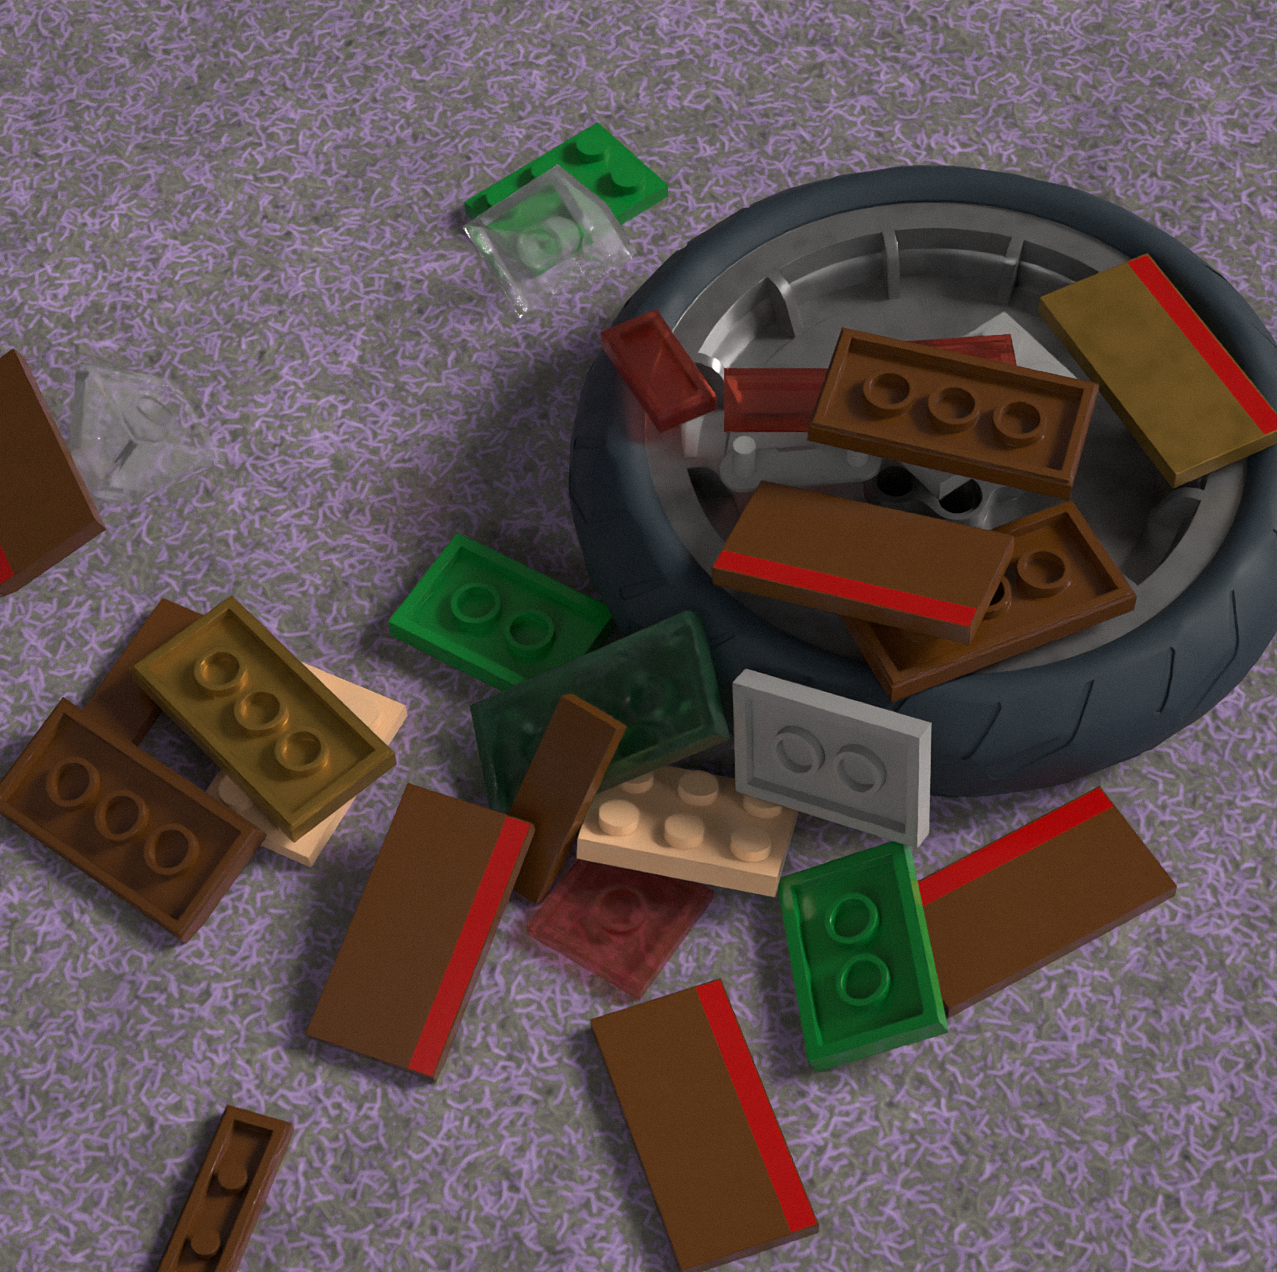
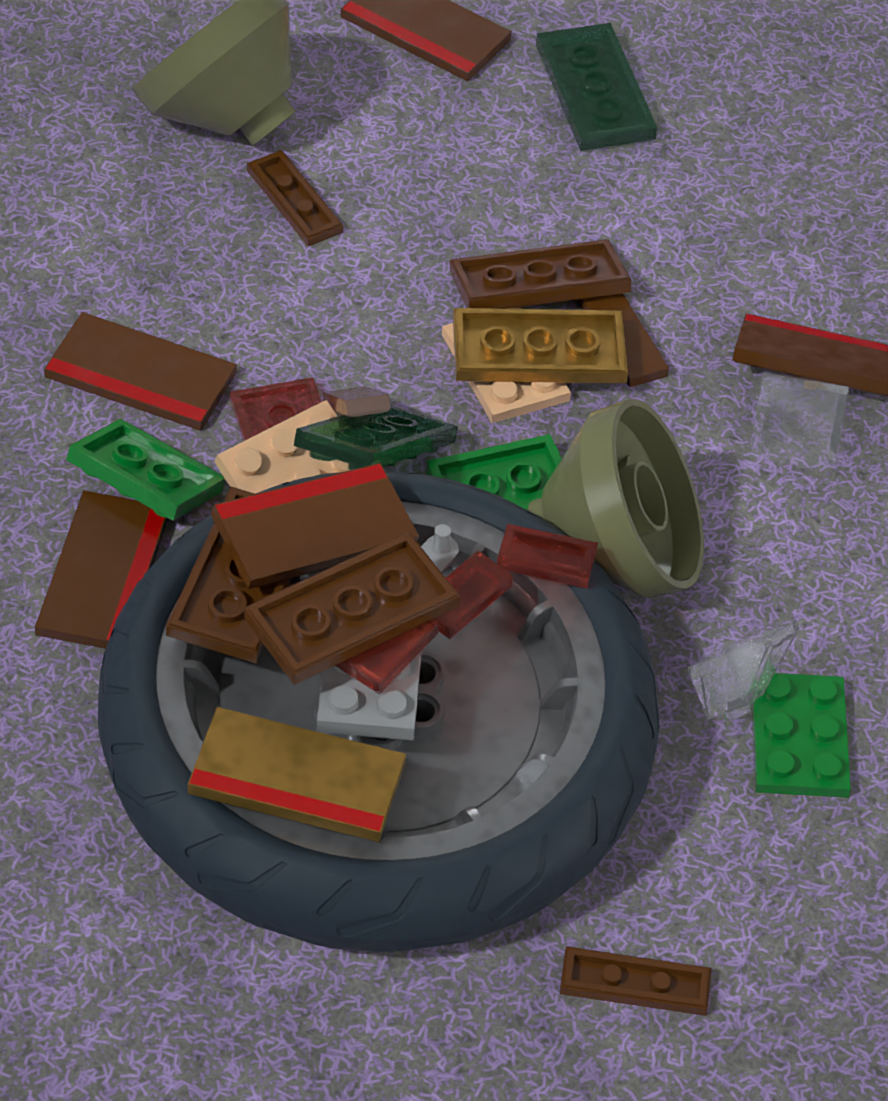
camera: 125 degrees right, 5 degrees down
(421, 932) = (350, 330): reddish brown tile -> none
(479, 436) = (630, 495): none -> olive cone
(832, 757) = (209, 482): light grey plate -> none
(963, 131) = (635, 981): none -> reddish brown tile

